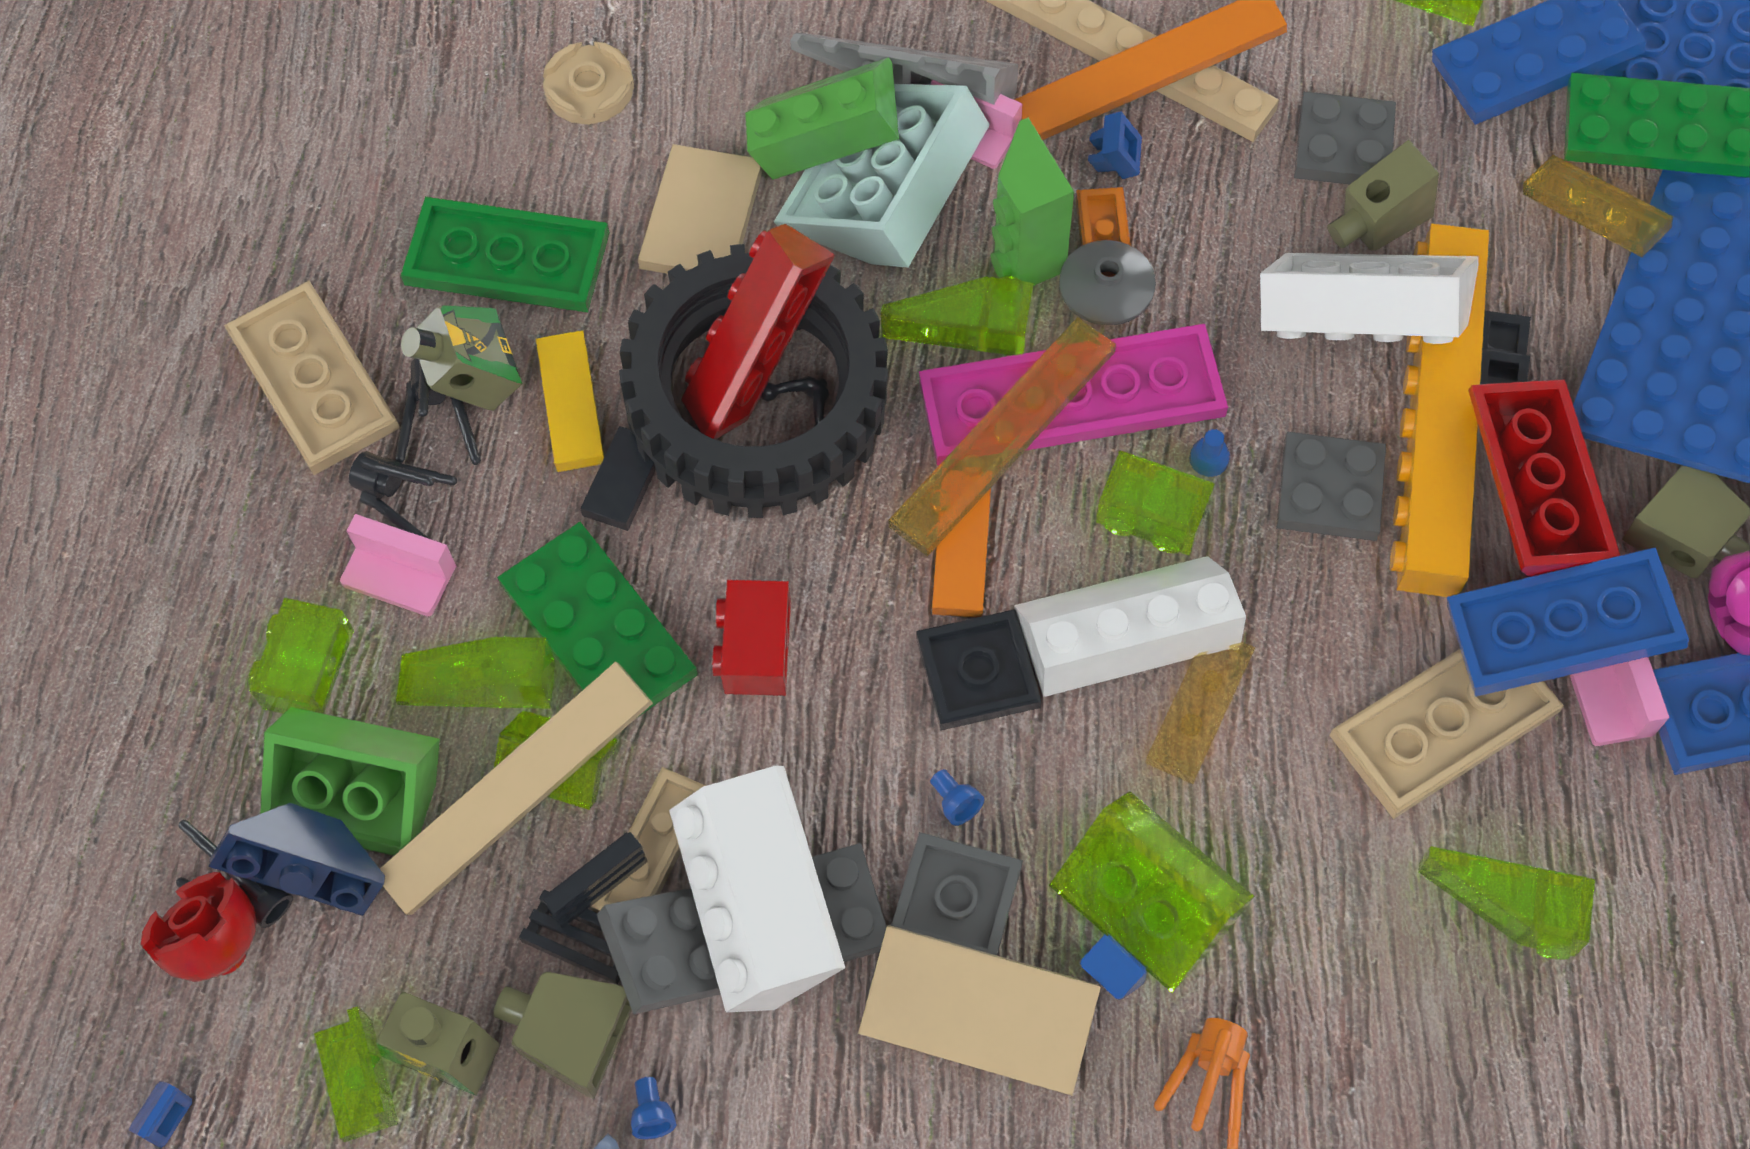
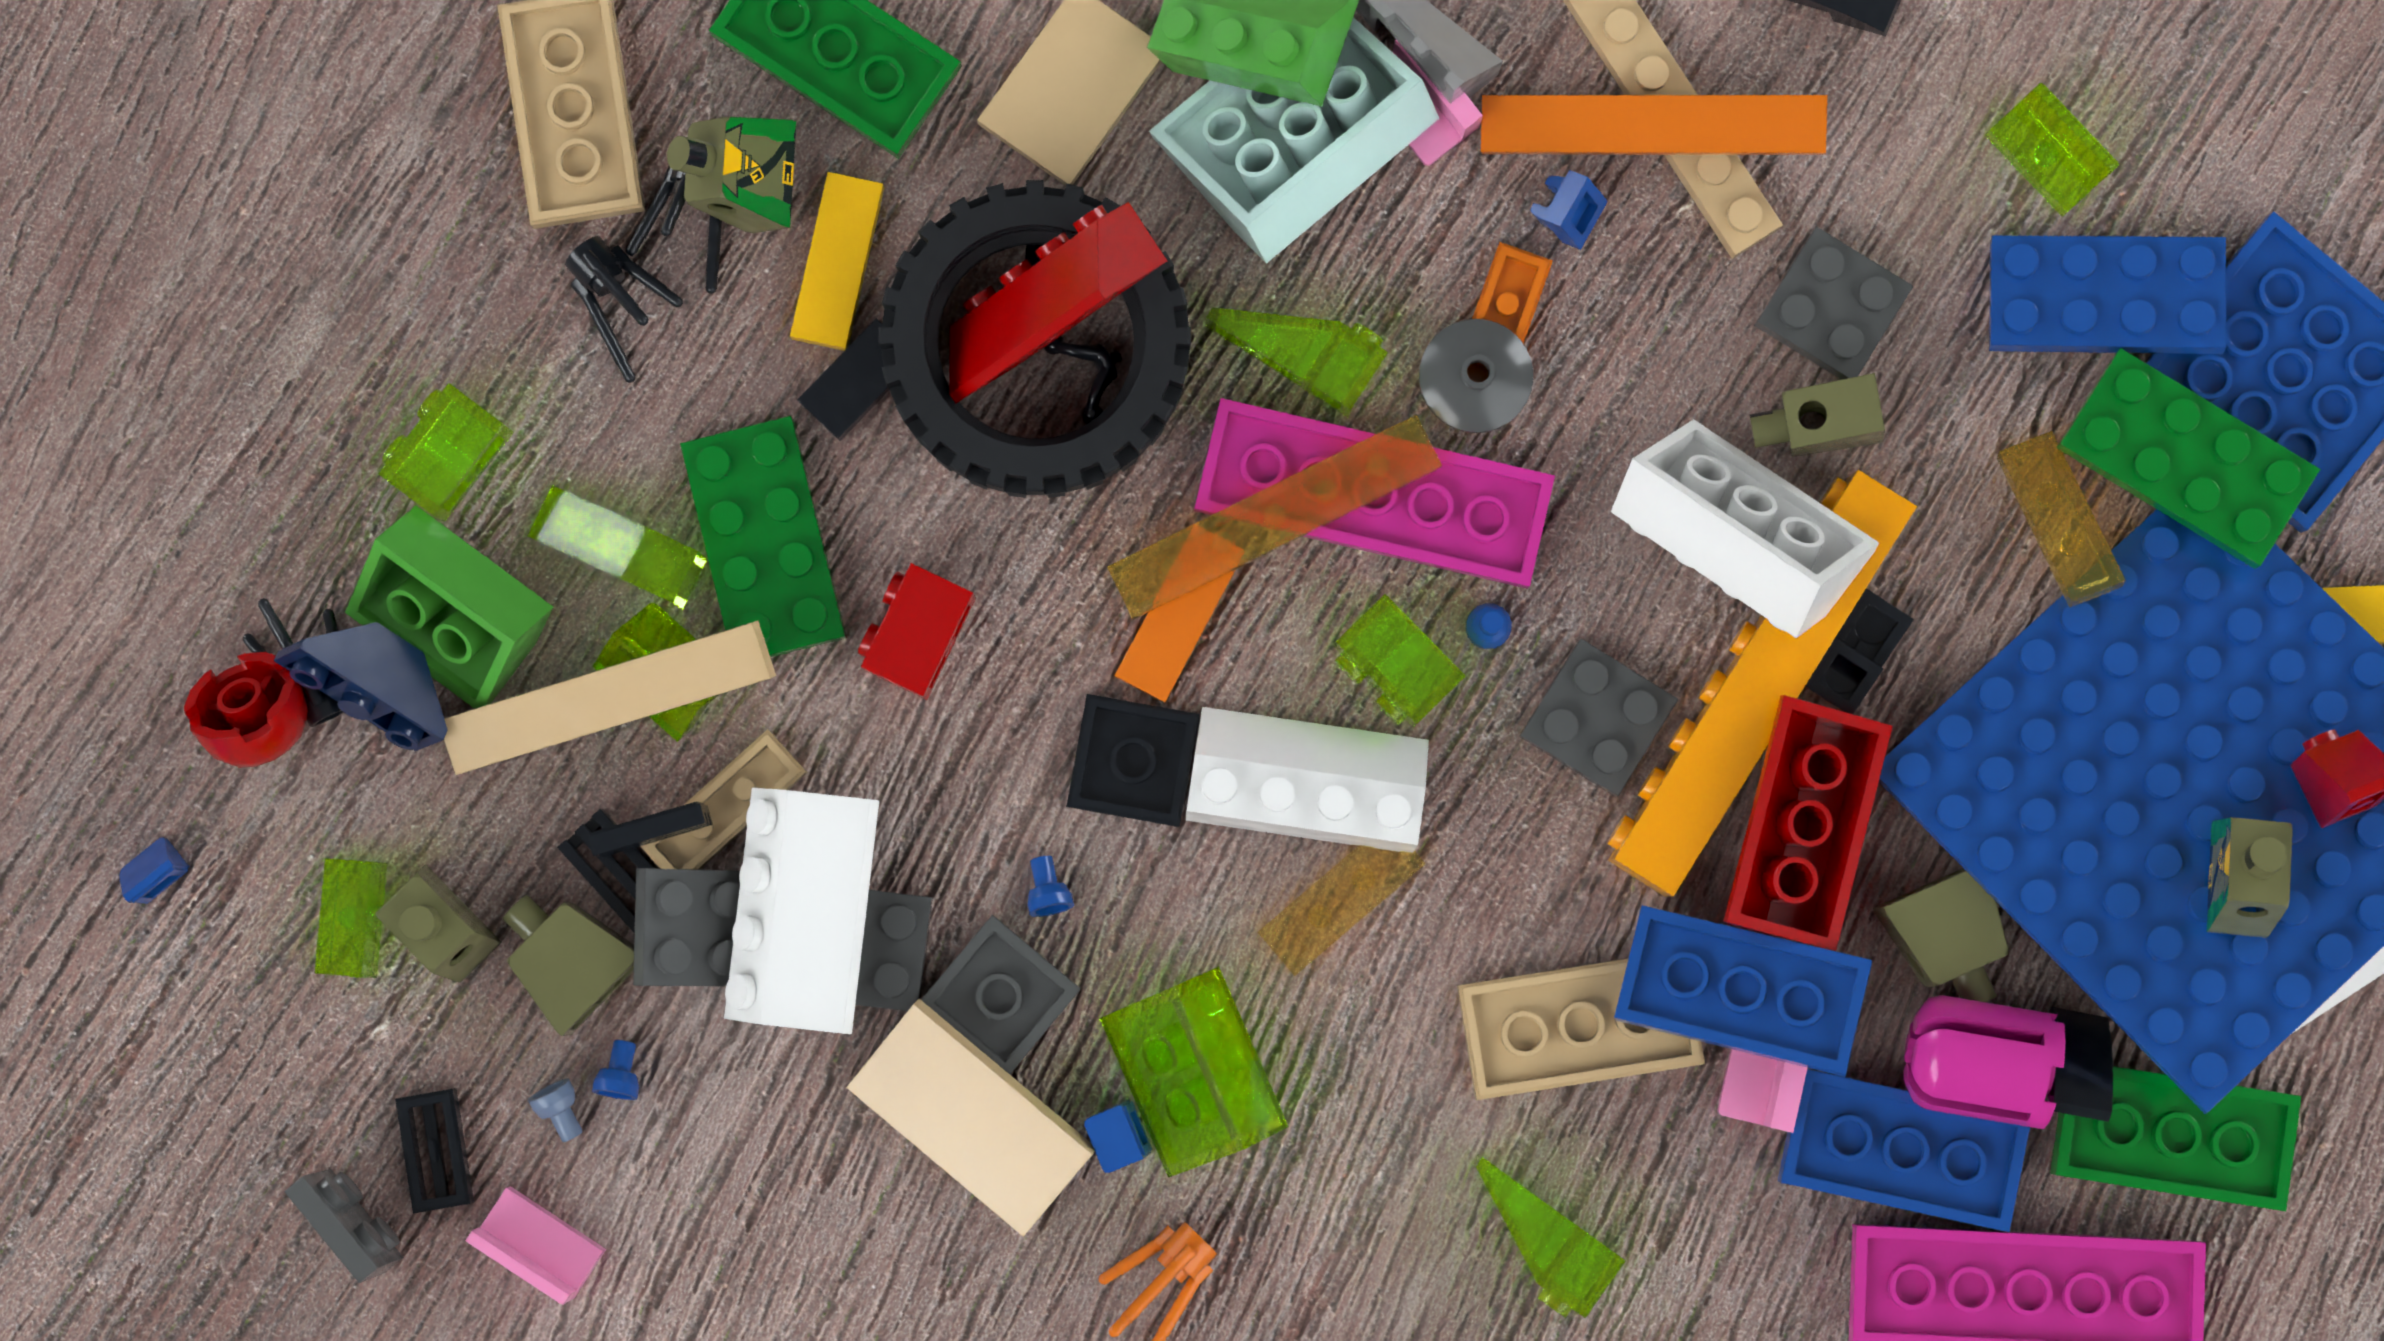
camera: 20 degrees right, 20 degrees up
(397, 566) = (579, 386): bright pink panel -> none
(1031, 211) = (1415, 276): bright green slope -> none

